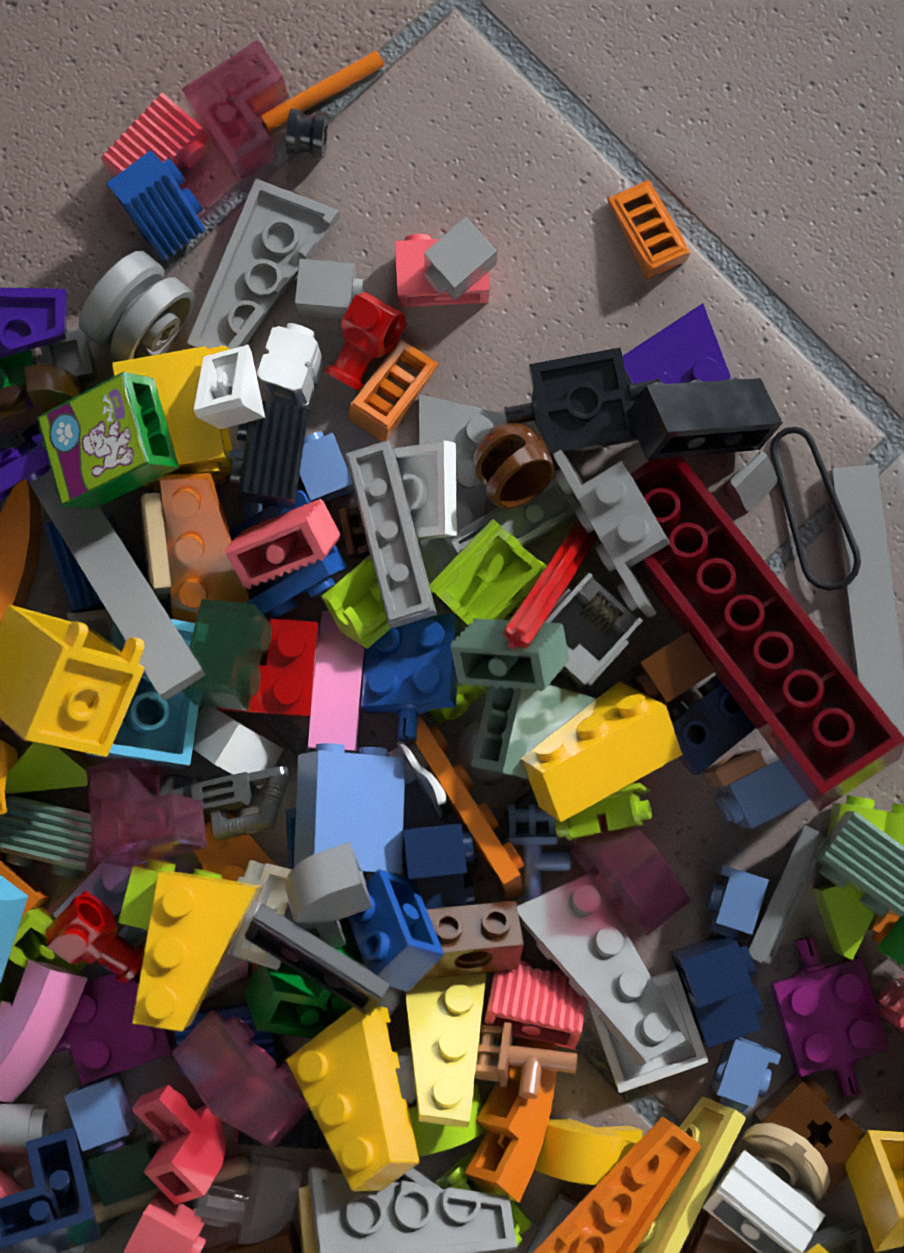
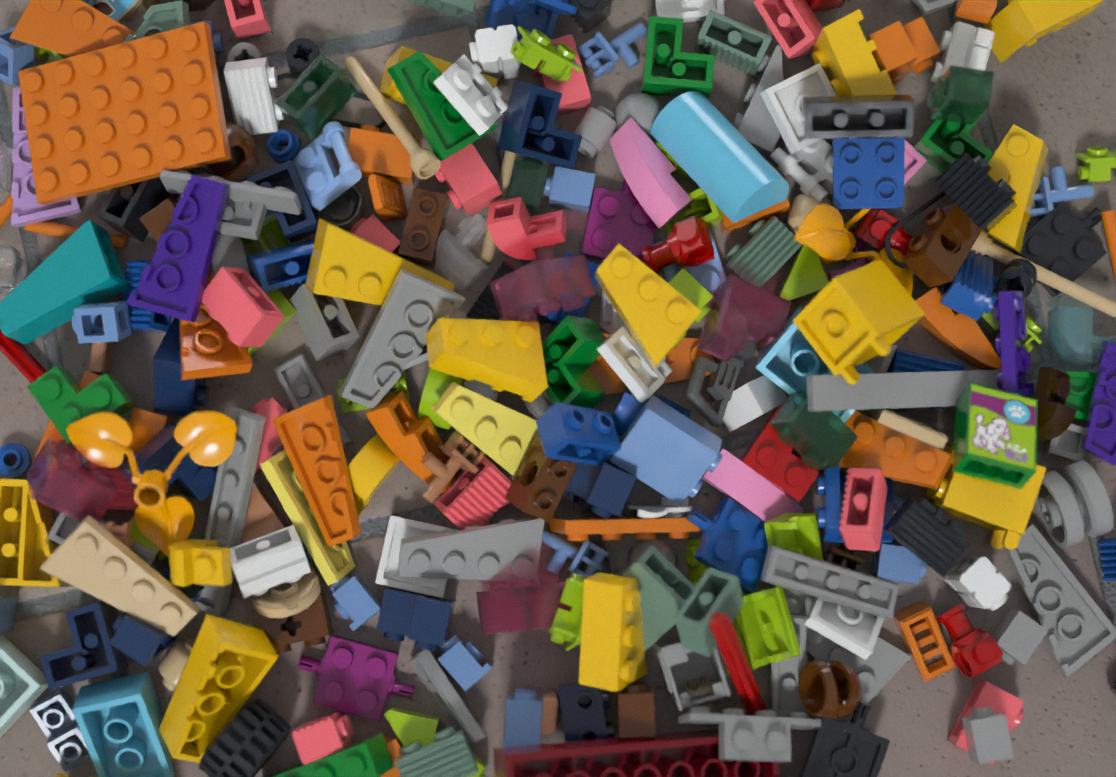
camera: 115 degrees right, 0 degrees up
(228, 389) = (985, 533): white slope -> none
(316, 960) = (590, 376): black tile -> none
(326, 890) = (629, 408): light grey brick -> none

